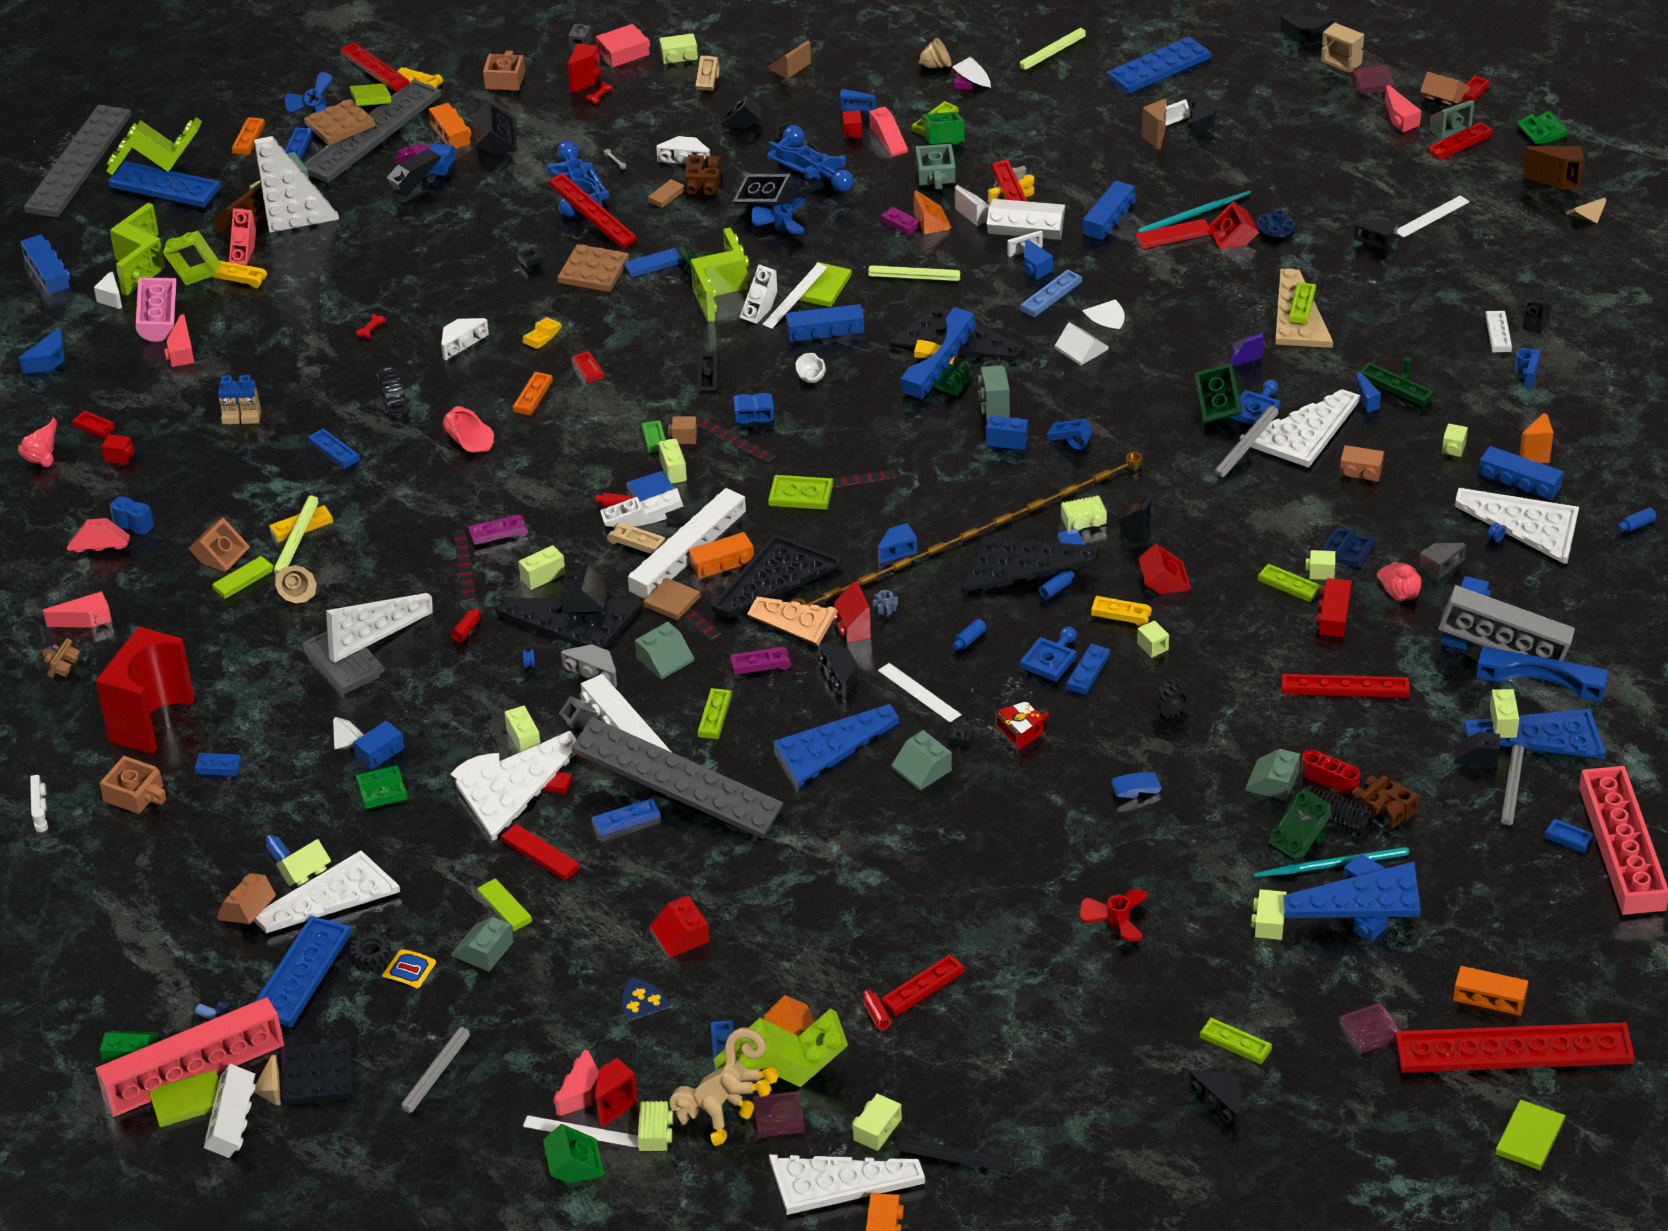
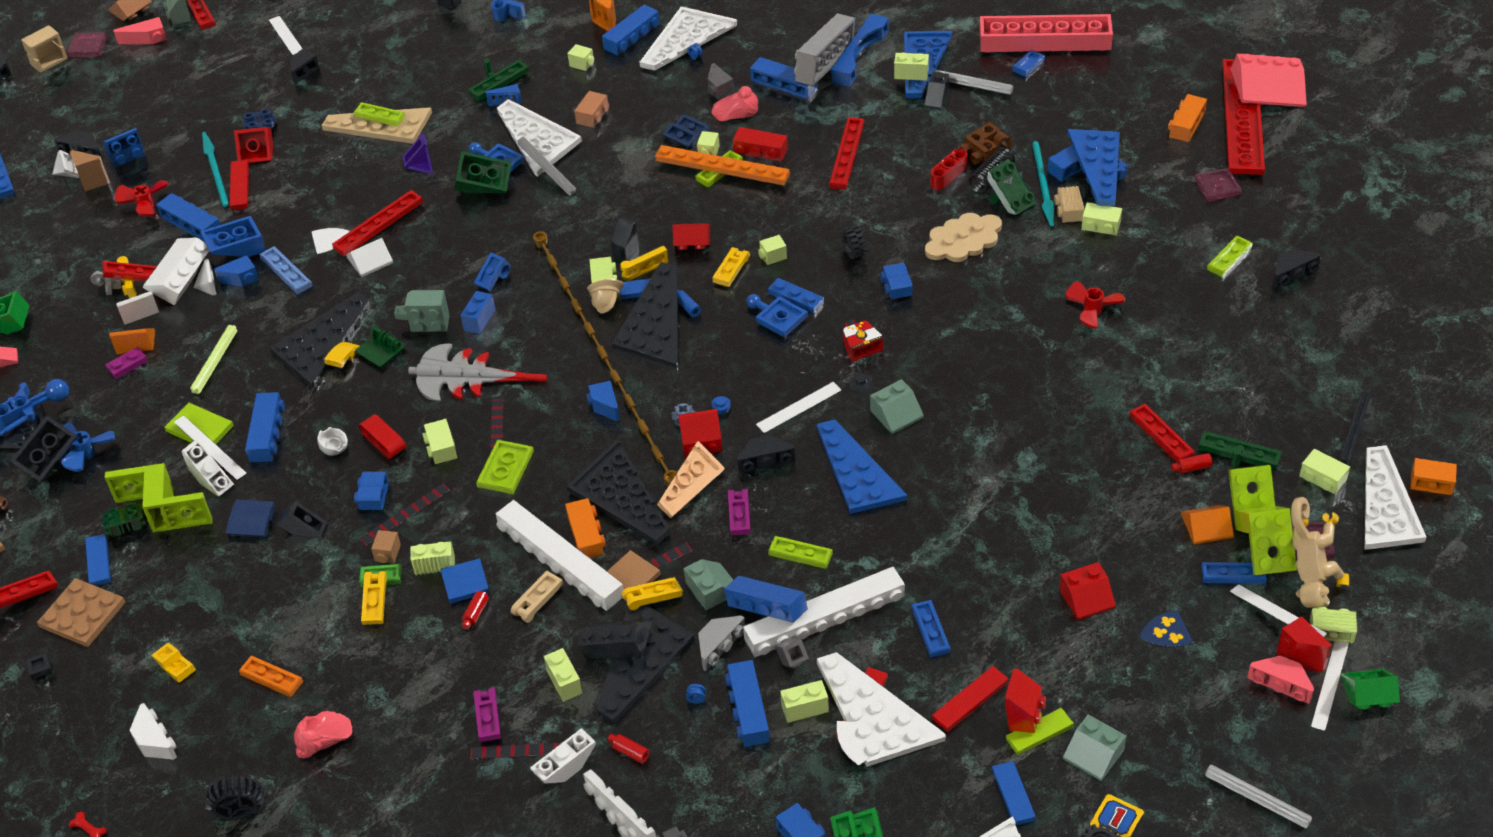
camera: 80 degrees left, 5 degrees up
(431, 890) = (1013, 793): none -> blue tile
(442, 580) = (565, 759): none -> white slope
(523, 875) = (1024, 703): none -> red slope
(524, 691) = (748, 703): none -> blue brick
(587, 366) = (246, 625): red tile -> none
(622, 433) = (373, 598): none -> yellow plate
(633, 682) = (766, 599): none -> blue brick
(641, 513) = (498, 585): white slope -> none
(642, 609) = (651, 593): none -> yellow plate
(664, 1079) = (1267, 606): none -> white sticker
(677, 777) = (900, 576): dark grey plate -> none
(711, 339) = (250, 518): none -> dark blue slope
(823, 440) = (440, 441): none -> yellowish green brick
(825, 401) = (382, 436): none -> red beam
(900, 1049) = (1239, 450): none -> dark green plate
(908, 630) = (721, 403): none -> blue plate
(920, 433) = (436, 371): none -> light grey animal
(921, 376) = (326, 327): blue arch -> none
(935, 165) = (64, 324): sand green hinge -> none
(969, 634) = (737, 364): blue cylinder -> none
(1047, 517) = (605, 293): none -> tan piece
(1075, 243) = (234, 238): none -> blue slope
(1109, 542) = (643, 264): none -> yellow plate
(1123, 744) = (896, 280): none -> blue brick
(1129, 171) = (141, 195): none -> red piece
(1132, 784) = (943, 279): blue slope -> none
(1133, 339) = (377, 223): none -> red plate
(1201, 141) = (124, 148): none -> blue slope
(1216, 798) = (963, 237): none -> tan plate
(1275, 774) = (946, 198): sand green slope -> none
(1286, 580) = (722, 165): none -> orange plate
(1290, 880) = (1069, 204): none -> tan brick
(1498, 331) = (452, 19): white plate -> none
(1530, 1134) = (1324, 121): lime tile -> none
(1581, 1065) = (1269, 80): none -> coral slope

